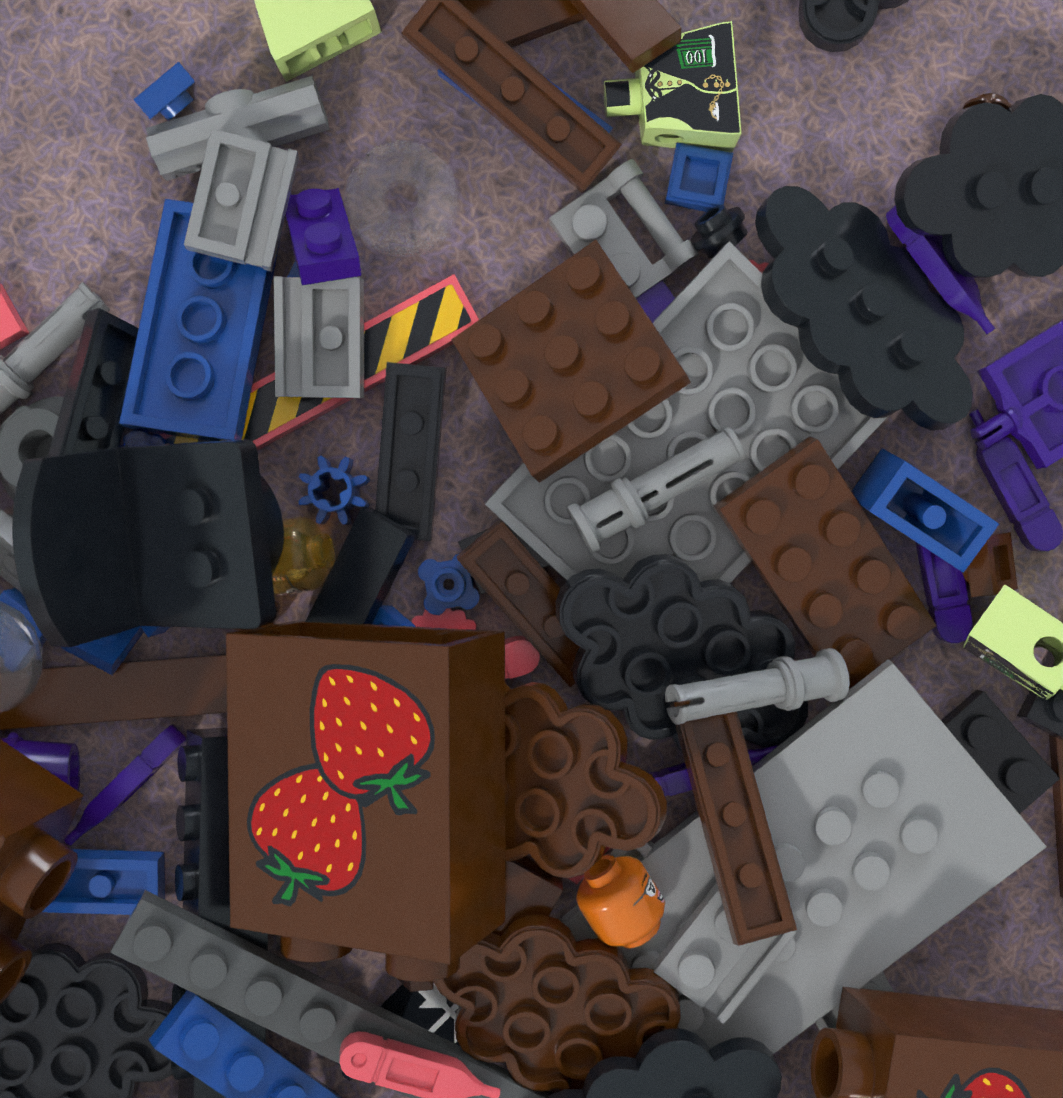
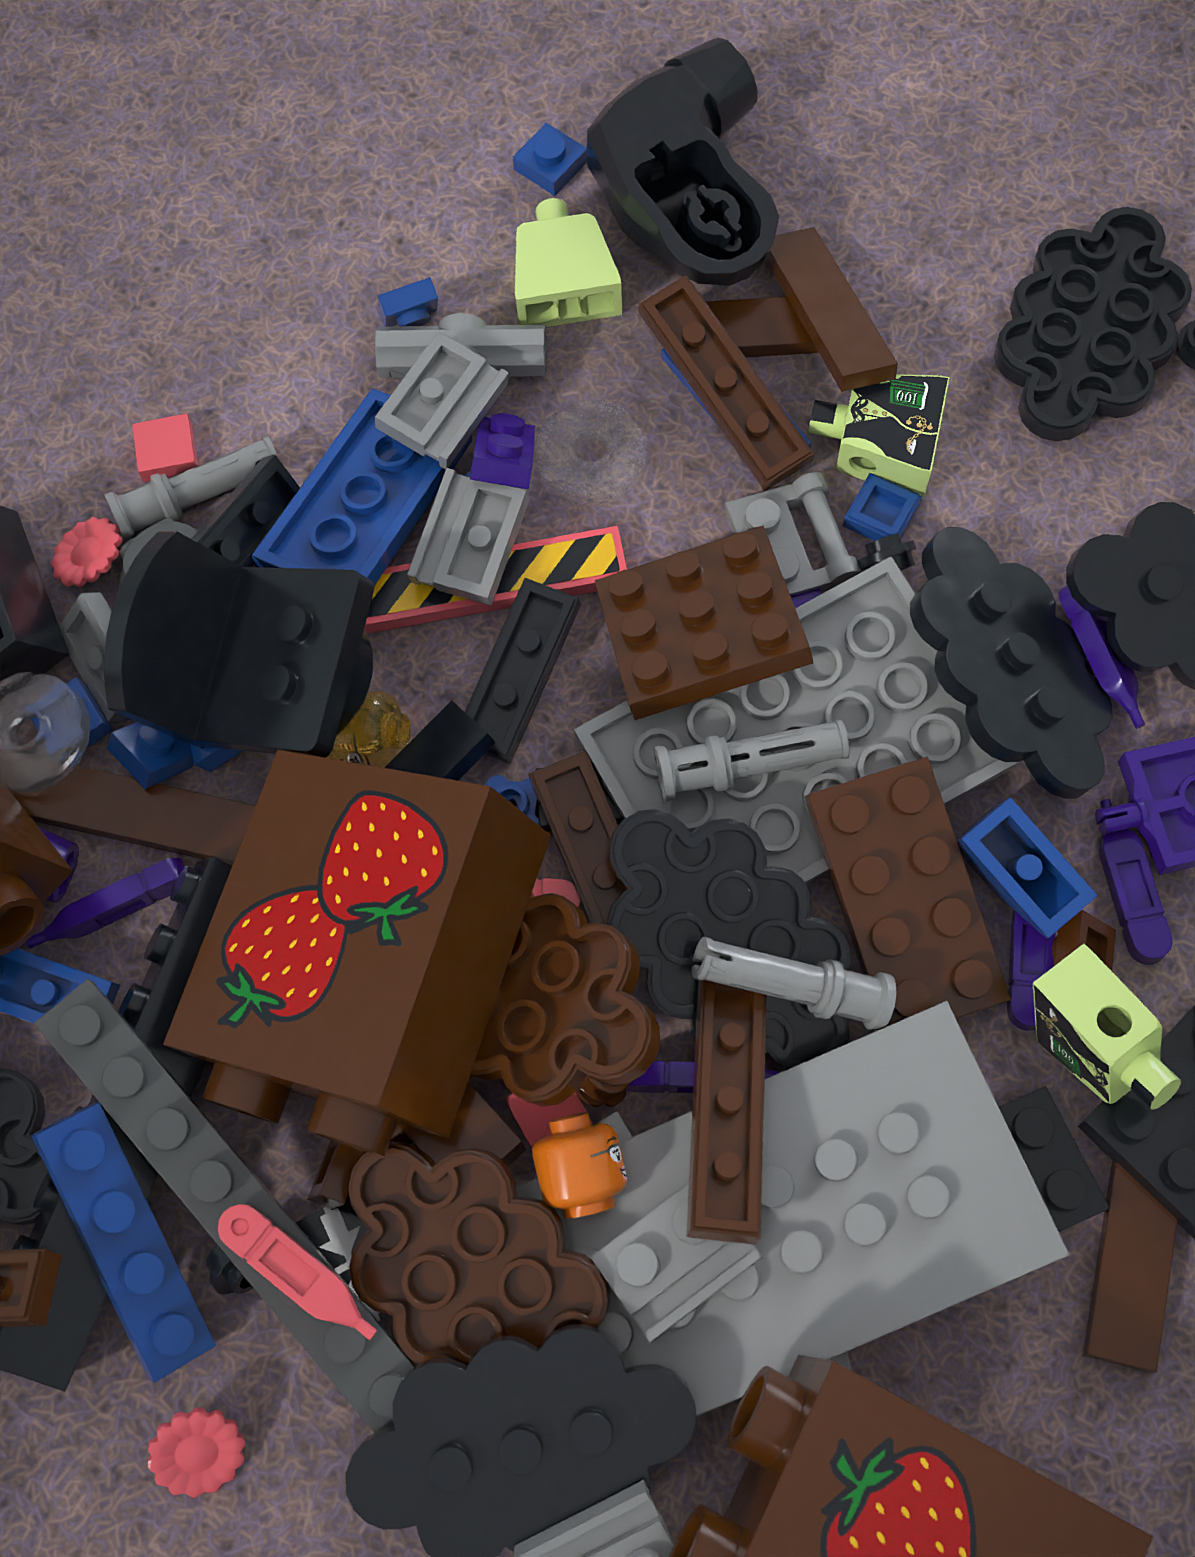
camera: 20 degrees right, 20 degrees down
(319, 483) = (414, 683): blue gear -> none

